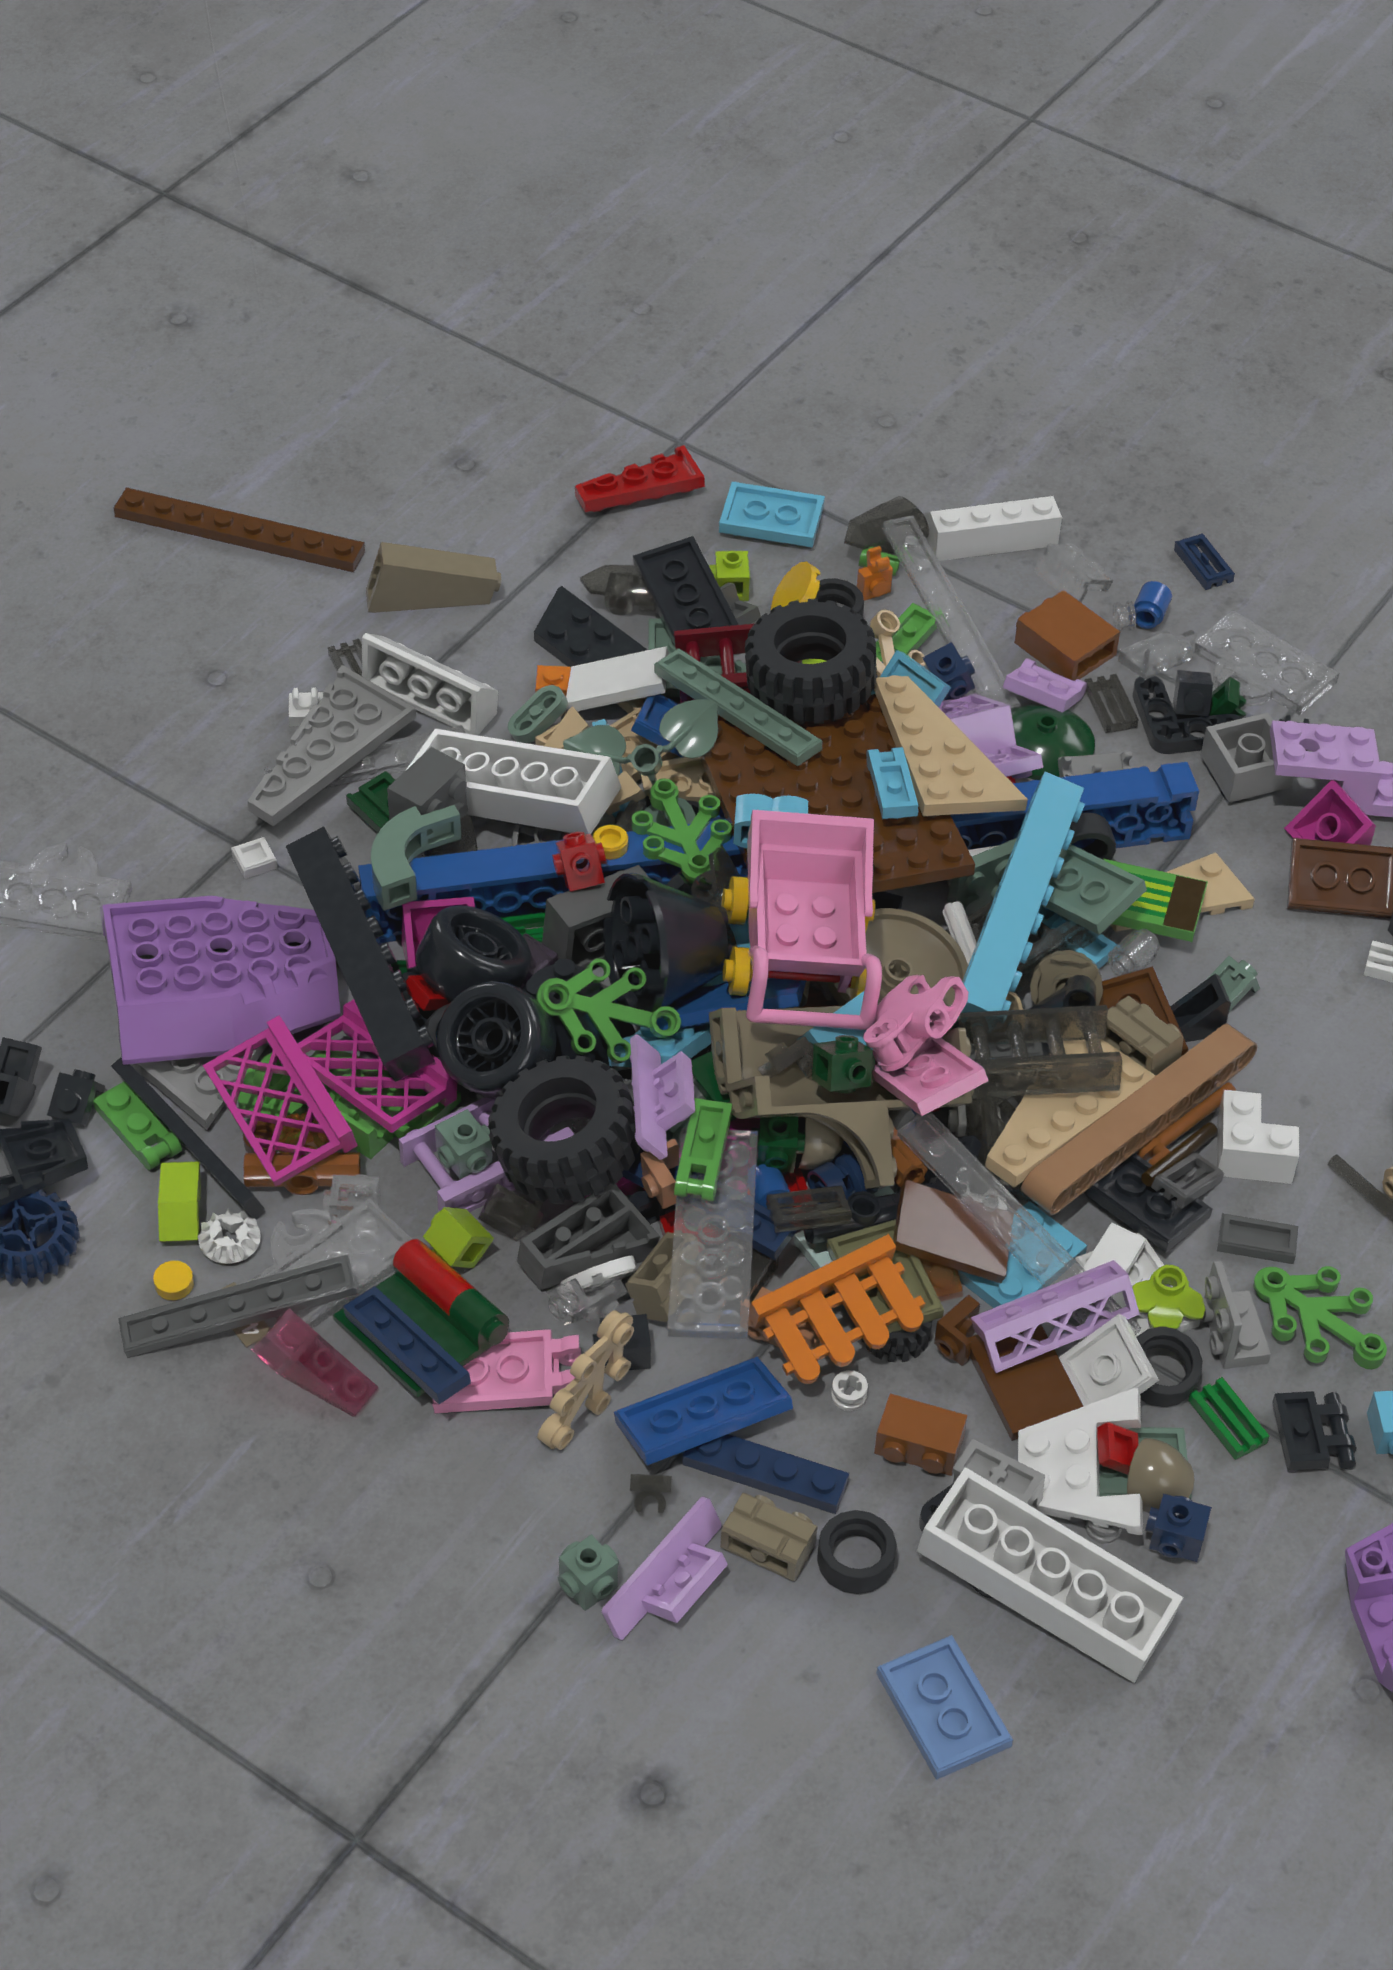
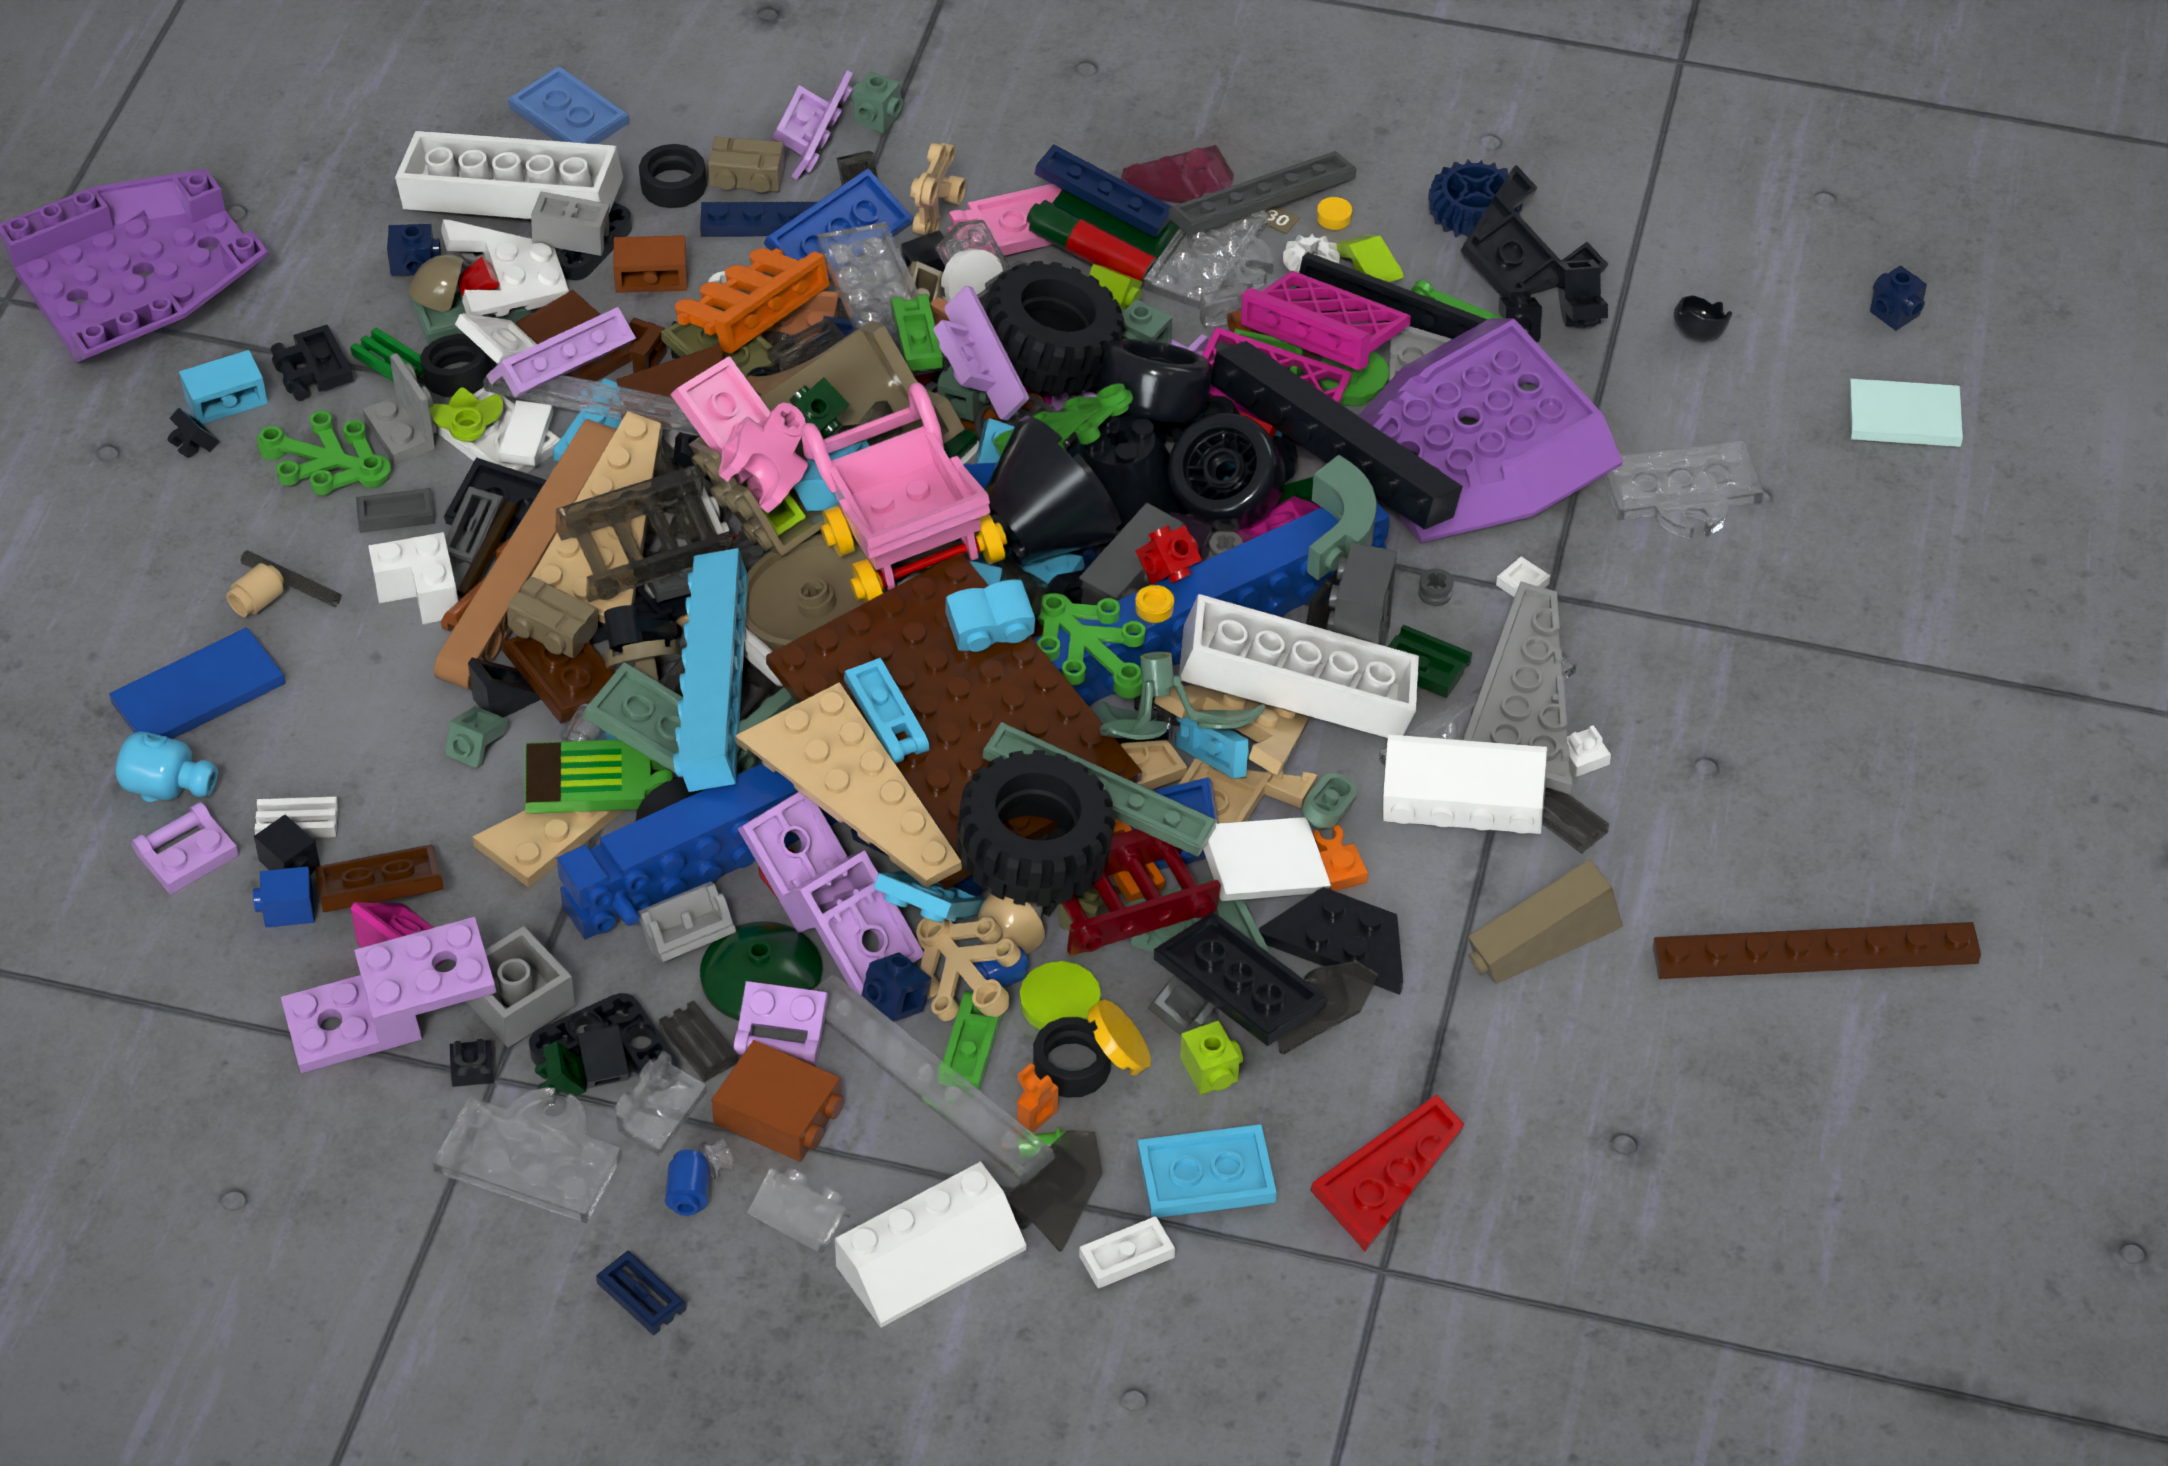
camera: 160 degrees right, 0 degrees up
(853, 484) = (1127, 1252): none -> white plate

